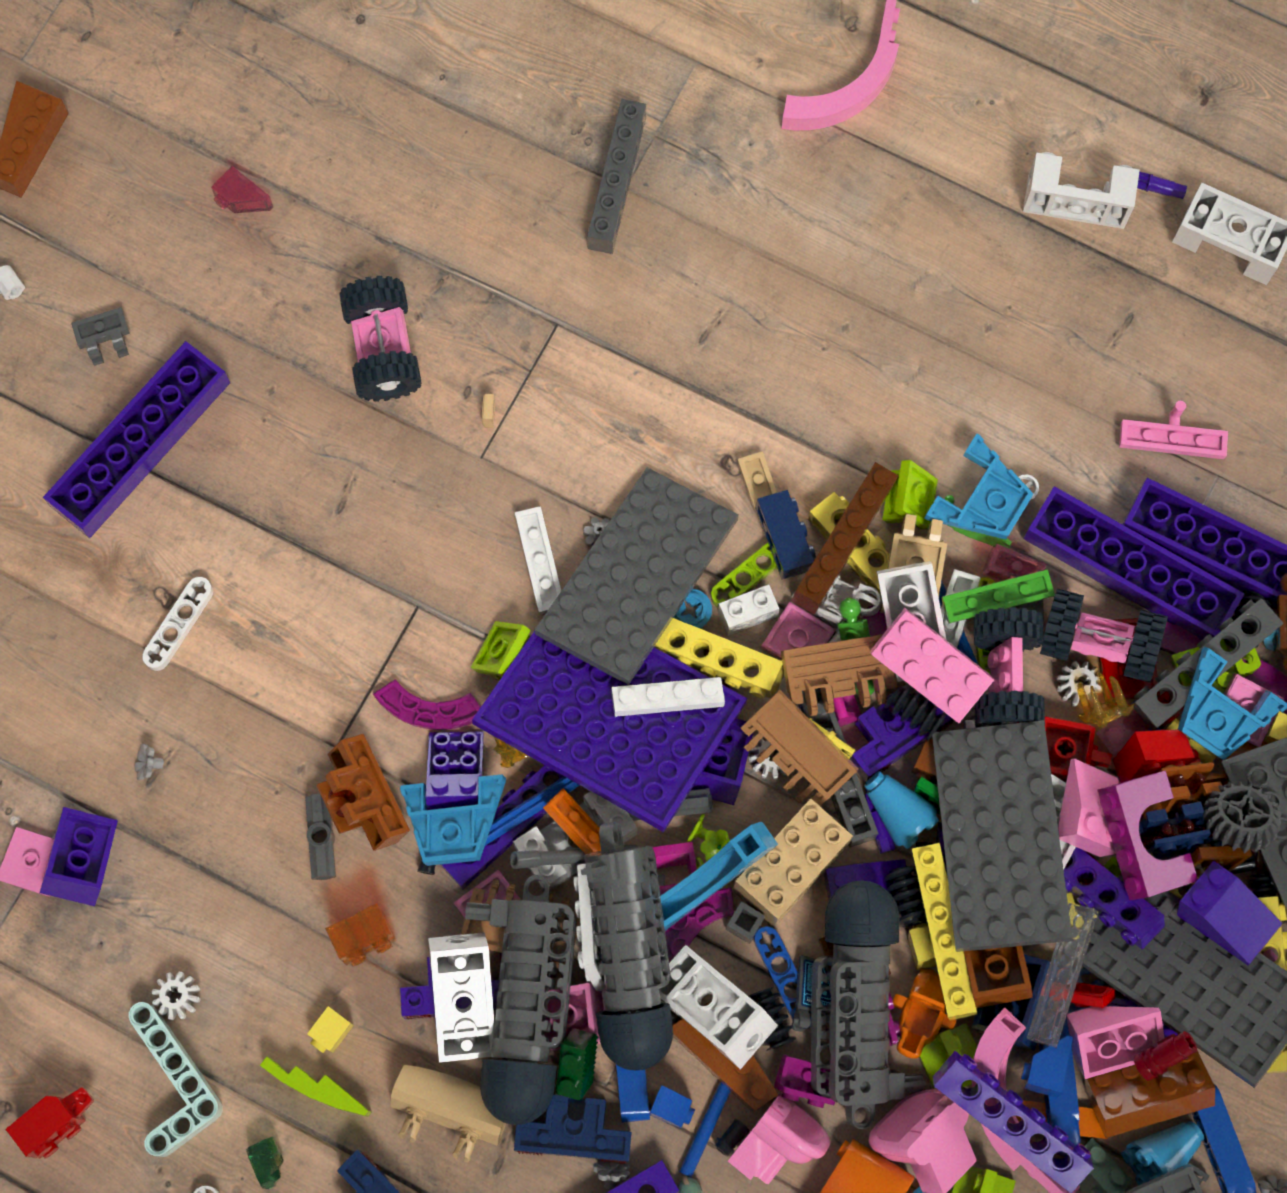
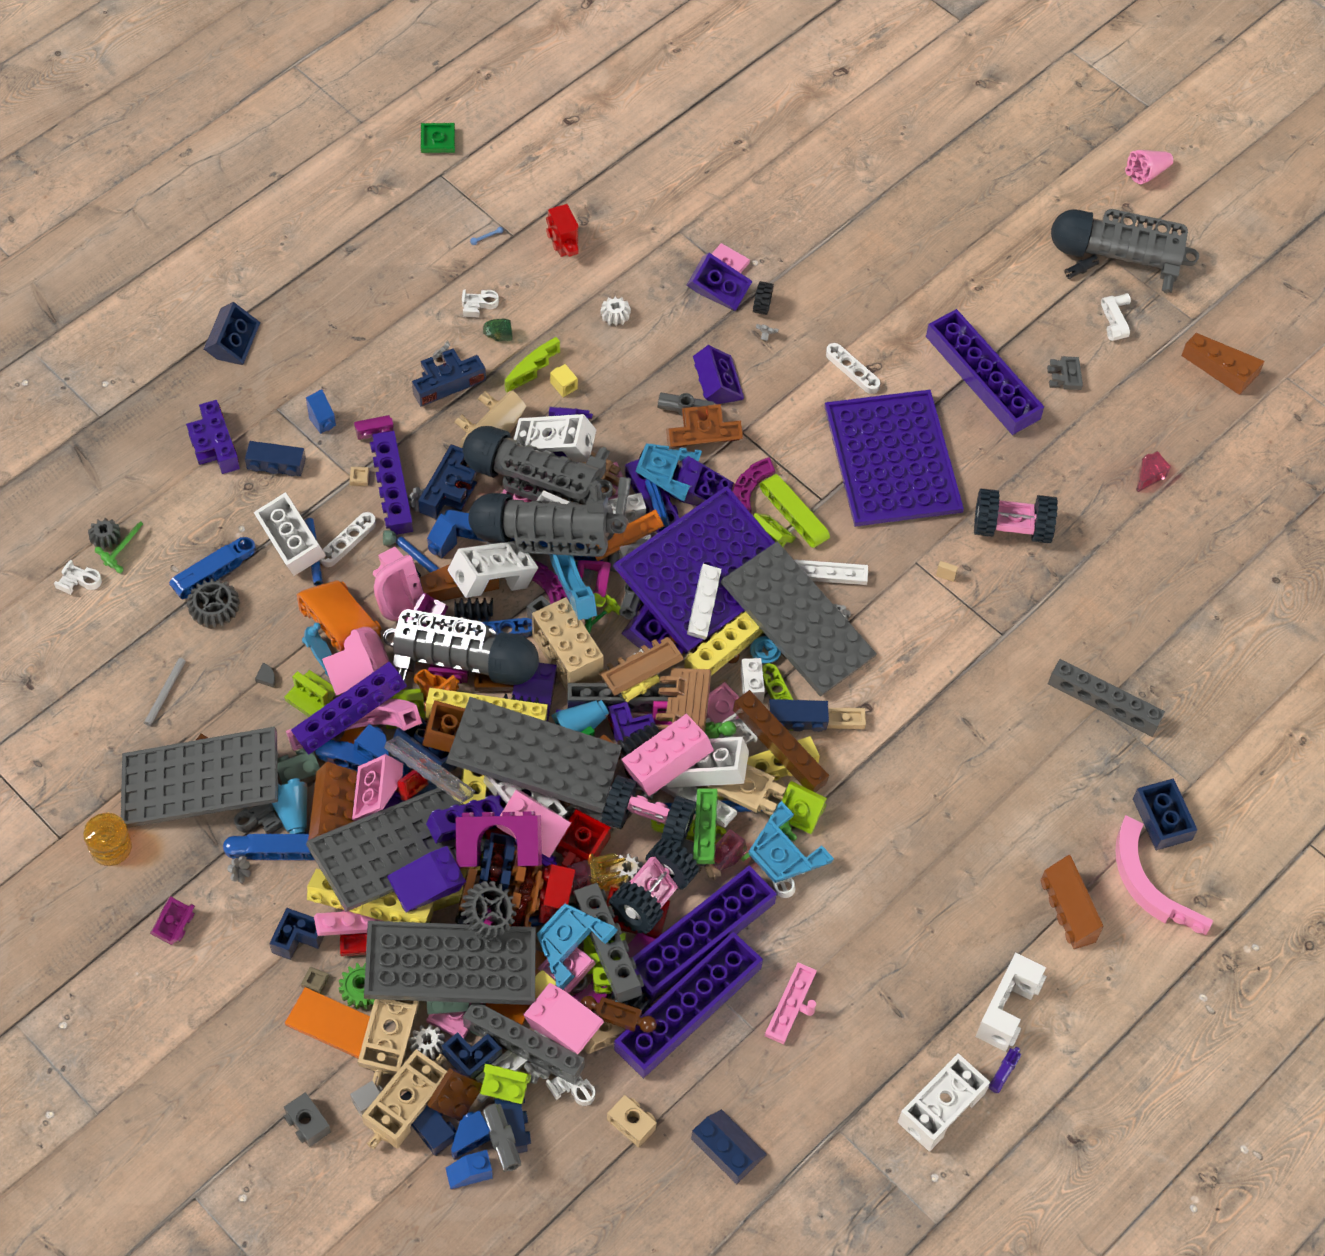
camera: 105 degrees right, 15 degrees down
(93, 780) = (763, 298): none -> black tyre
(178, 1077) = (567, 303): light aqua beam -> none
(253, 807) = (717, 376): none -> dark purple slope
(319, 528) = (893, 458): none -> dark purple plate
(361, 935) = (613, 405): clear orange brick -> none
(385, 1001) = (552, 410): none -> dark purple piece
(454, 634) = (794, 510): none -> lime beam
(576, 1064) = (485, 484): dark green brick -> none
(762, 76) = (1164, 814): none -> dark blue brick
(923, 153) = (1072, 903): none -> dark orange slope
(1167, 1053) = (351, 804): dark red axle -> none

